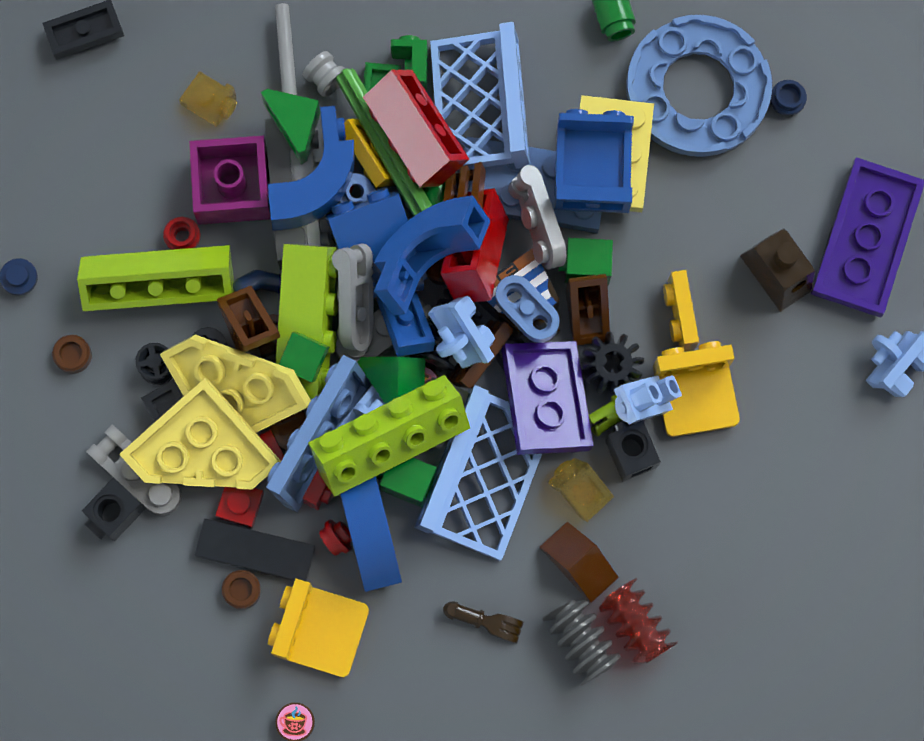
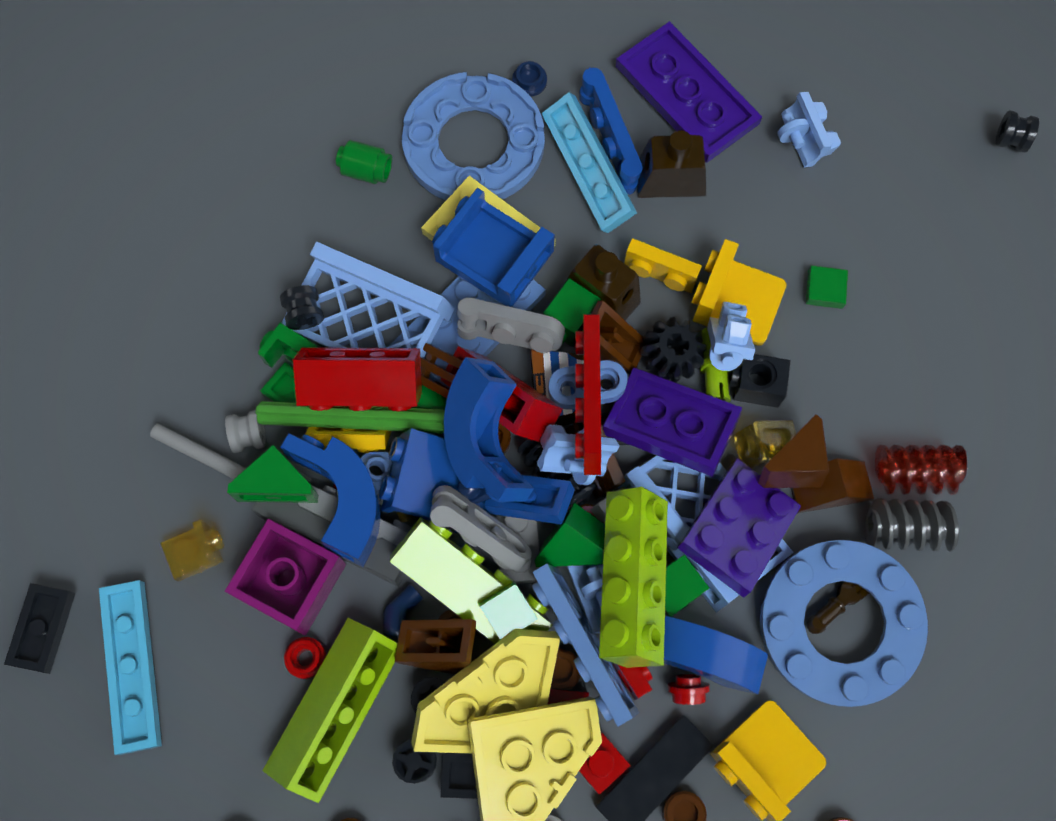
camera: 55 degrees left, 5 degrees down
(96, 112) = (129, 668): none -> medium azure plate
(450, 47) = (301, 307): none -> black wheel
(491, 501) = (739, 528): none -> dark purple plate
(518, 649) = (797, 659): none -> medium blue plate
(523, 304) = (589, 408): none -> red plate
(573, 513) = (801, 461): none -> reddish brown slope
(631, 274) = (608, 279): none -> dark brown torso
(739, 194) = (589, 163): none -> medium azure plate
(759, 461) = (827, 287): none -> green tile
(791, 182) = (607, 118): none -> blue plate

